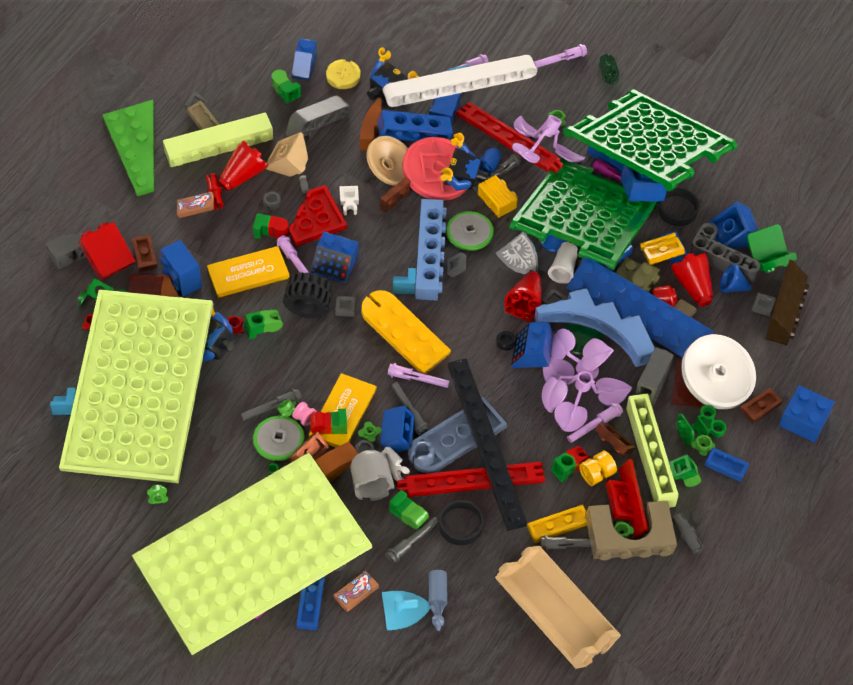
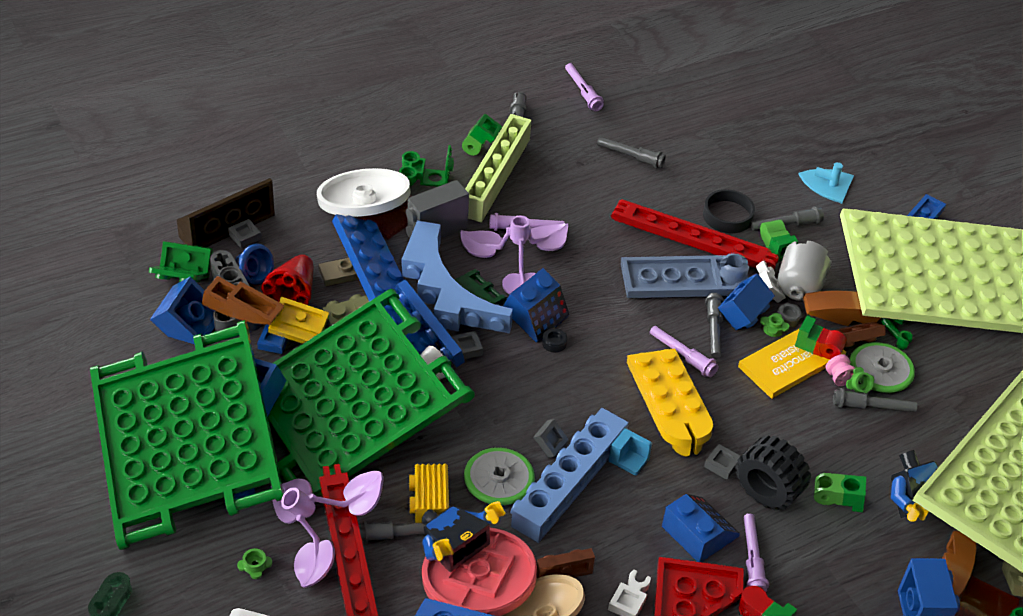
camera: 150 degrees left, 10 degrees down
(238, 321) = (878, 512): red plate -> none
(247, 271) = (826, 573): yellow tile -> none
(356, 591) = (872, 205): tile -> none
(437, 596) = (791, 169): sand blue wheel -> none
(487, 445) = (657, 252): black plate -> none
(490, 160) = (401, 546): blue brick -> none
(519, 254) = (463, 410): shield -> none
(524, 297) = (498, 357): red cone -> none
(557, 606) = (687, 113): tan panel -> none
(558, 523) = (631, 171): yellow tile -> none
(568, 463) = (581, 200): green leg -> none
(569, 282) = (435, 330): none -> blue plate
(594, 355) = (500, 223): lavender plant -> none
(598, 468) = (560, 181): yellow wheel -> none
(609, 434) = (519, 197): copper plate -> none
(609, 544) = (553, 112): dark tan arch -> none
(622, 526) = (577, 137): bright green plate -> none
(626, 499) = (552, 152): red bracket -> none
(651, 589) = (594, 101): none -> lavender pin
(666, 294) = (343, 285): red head -> none
(702, 231) = (241, 302): none -> dark orange slope
(705, 440) = (435, 159): bright green plate -> none
(726, 464) = (430, 135): blue plate -> none
(761, 405) = (347, 159): copper plate -> none
(806, 413) = (314, 129): blue brick -> none

